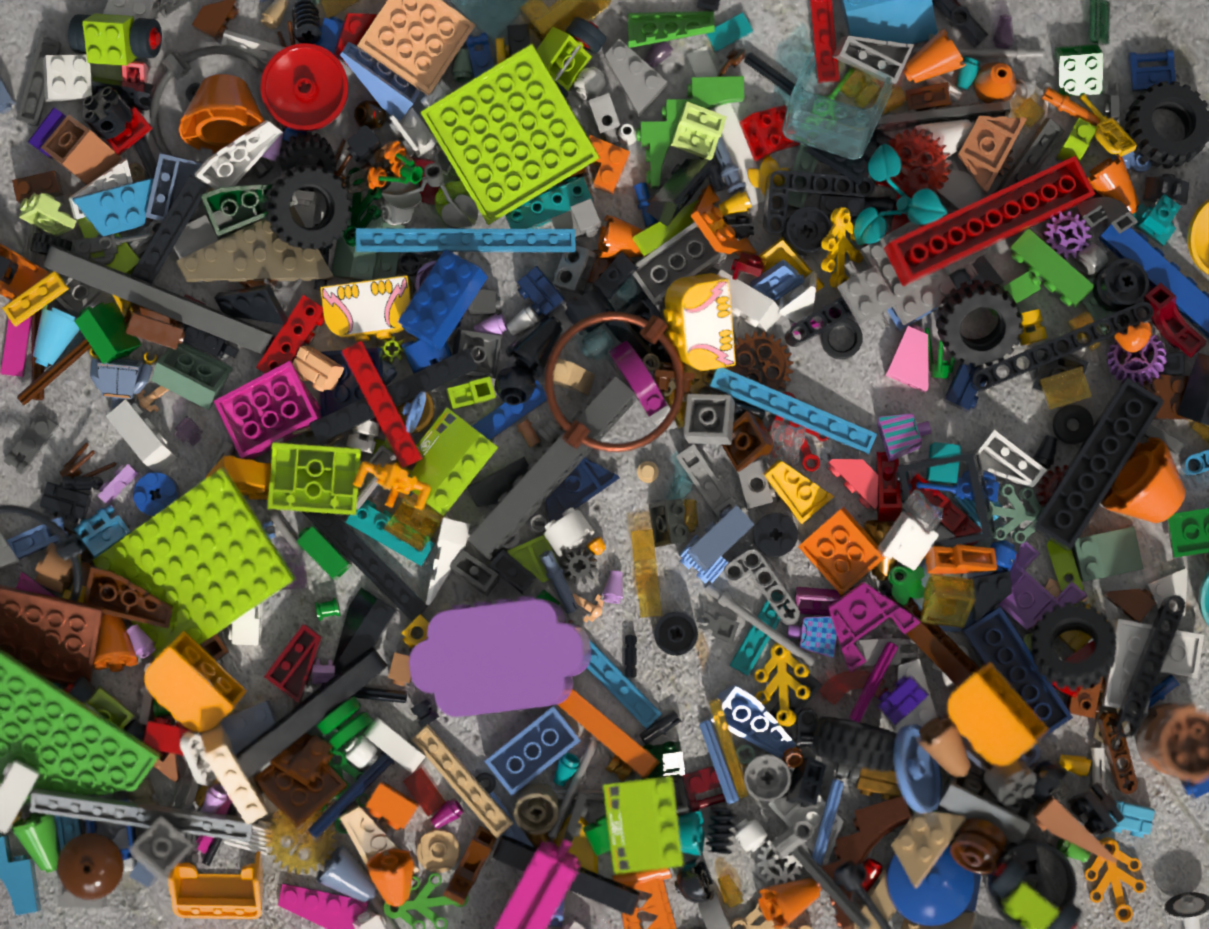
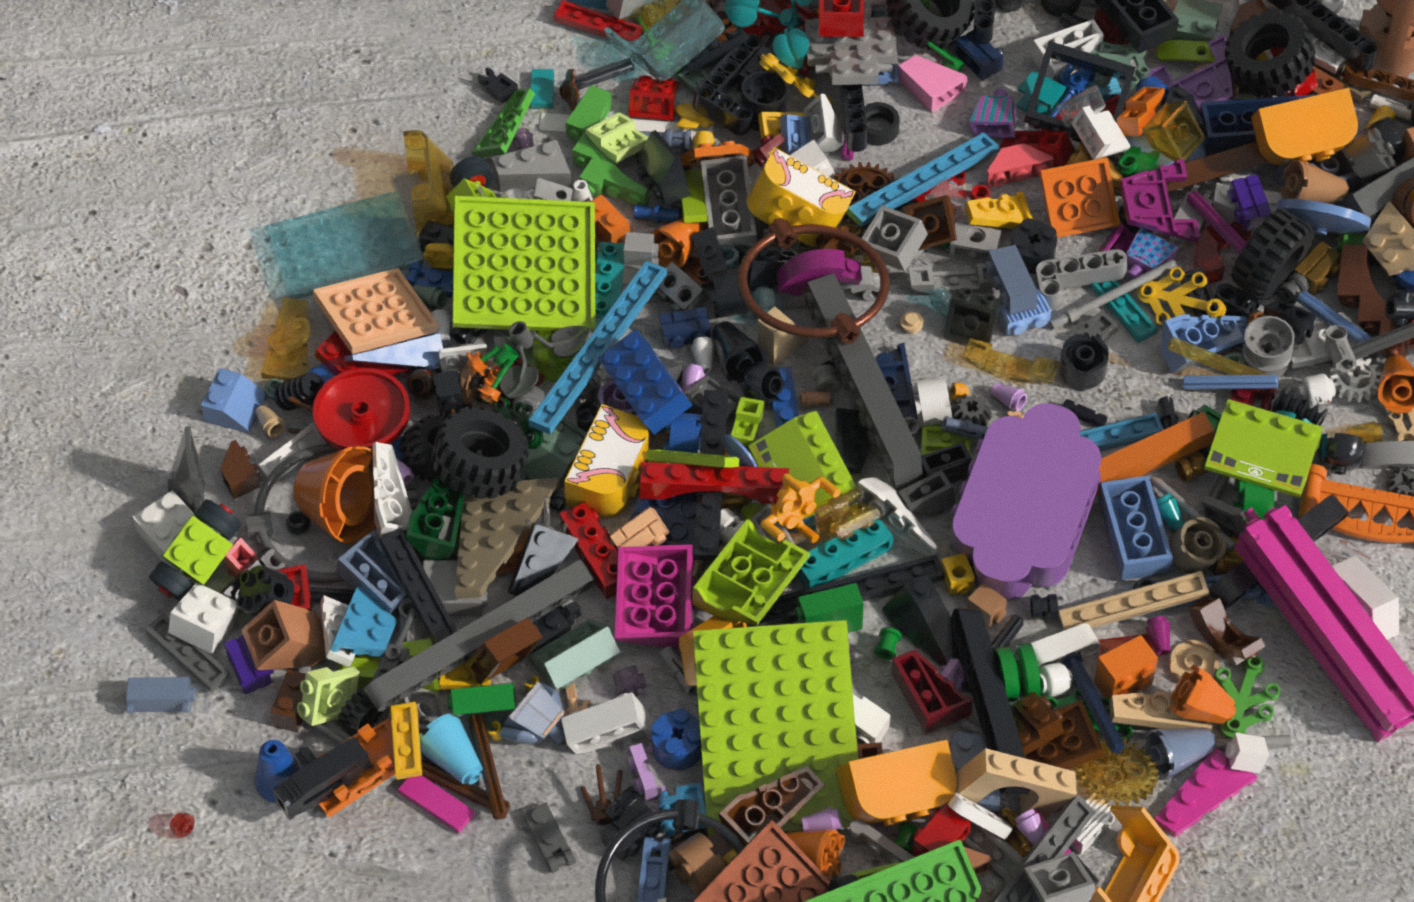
camera: 60 degrees left, 30 degrees down
(389, 377) = (692, 458): none -> lime tile

